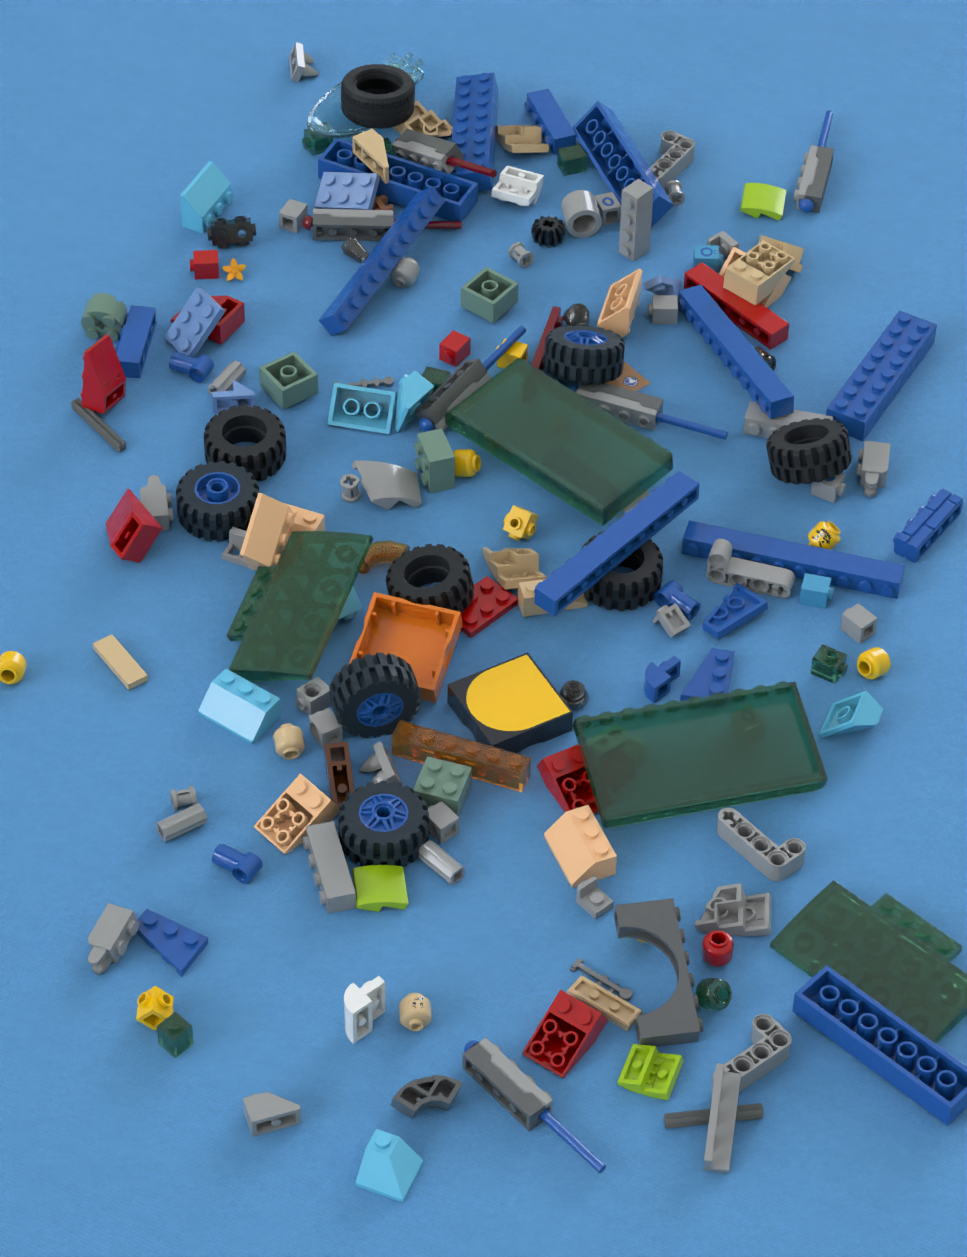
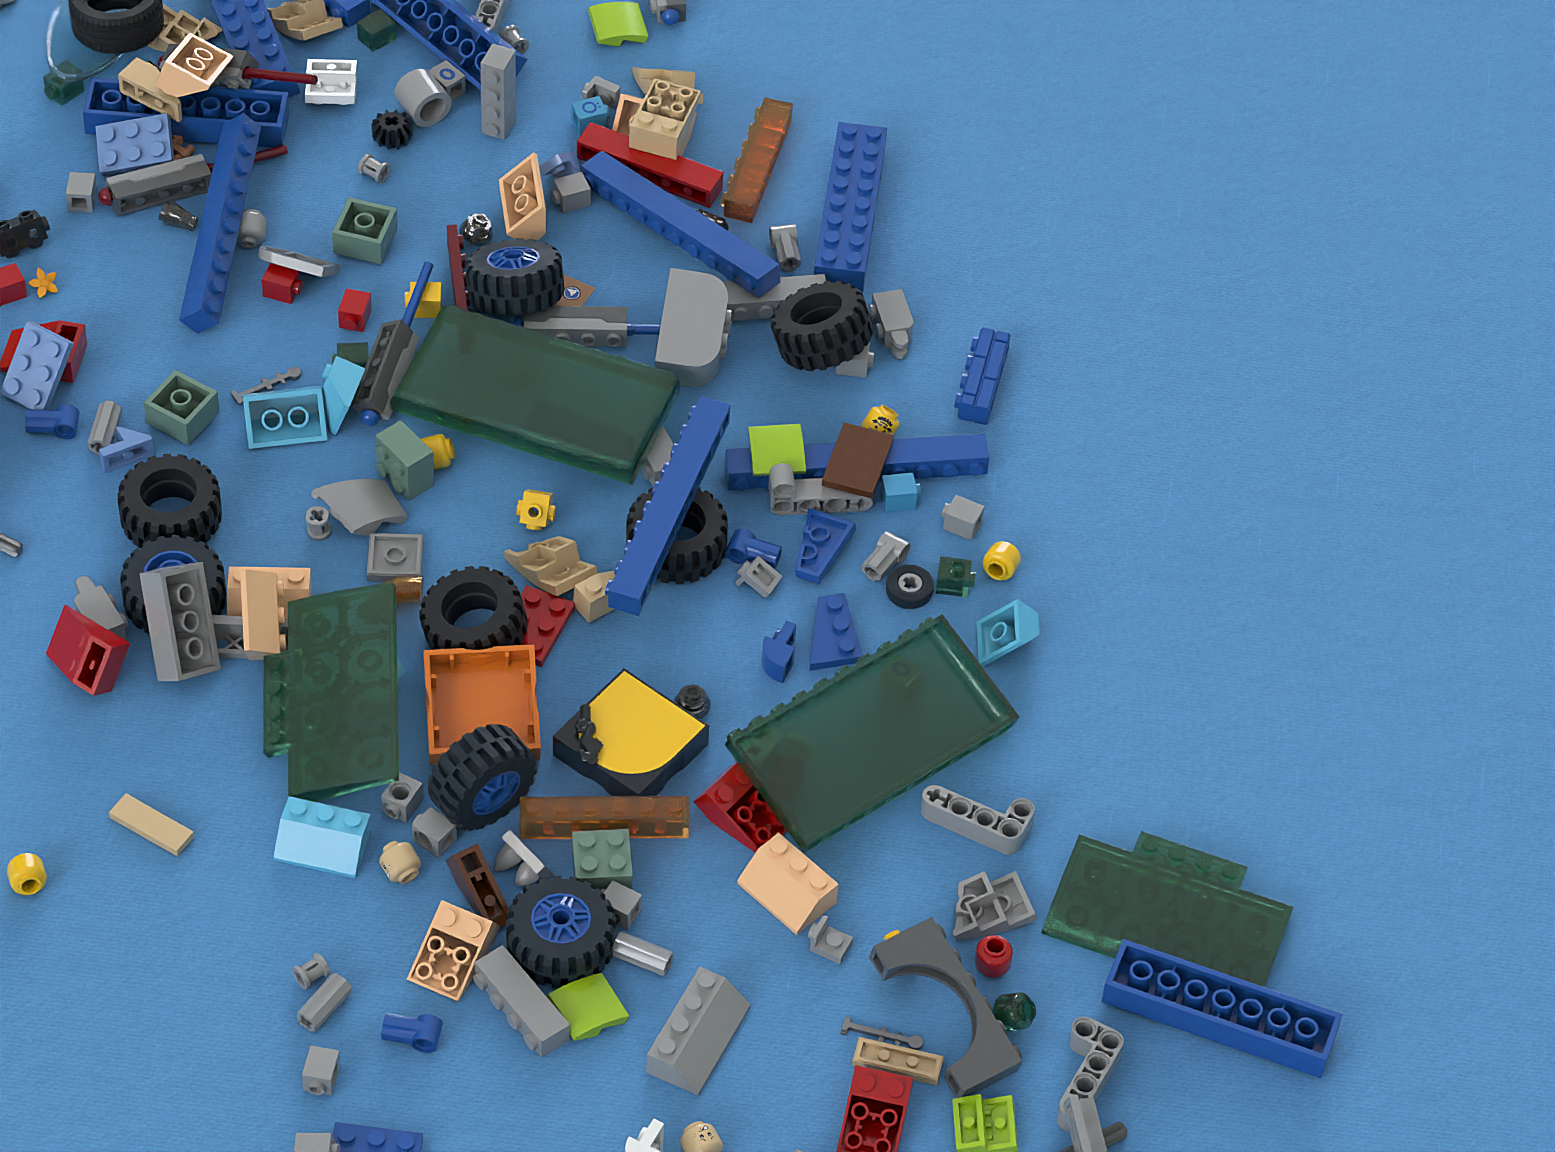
camera: 25 degrees left, 5 degrees up
(154, 869) = (320, 1070): none -> light grey brick
(205, 522) = (180, 621): none -> light grey slope
(398, 527) = (394, 556): none -> light grey tile
(406, 142) = (192, 67): none -> light nougat slope
(409, 315) = (281, 283): none -> red brick
(428, 303) = (298, 261): none -> light grey tile
(454, 930) = (697, 1032): none -> light grey slope
(471, 697) = (590, 746): none -> black animal
(703, 426) = (693, 327): none -> light grey brick
(730, 526) = (775, 446): none -> lime slope
(785, 631) = (888, 551): none -> light grey piece
(789, 556) = (857, 460): none -> reddish brown tile
(790, 670) = (912, 597): none -> black bush
(814, 390) = (785, 242): none -> light grey piece
(823, 323) = (757, 160): none -> clear orange brick

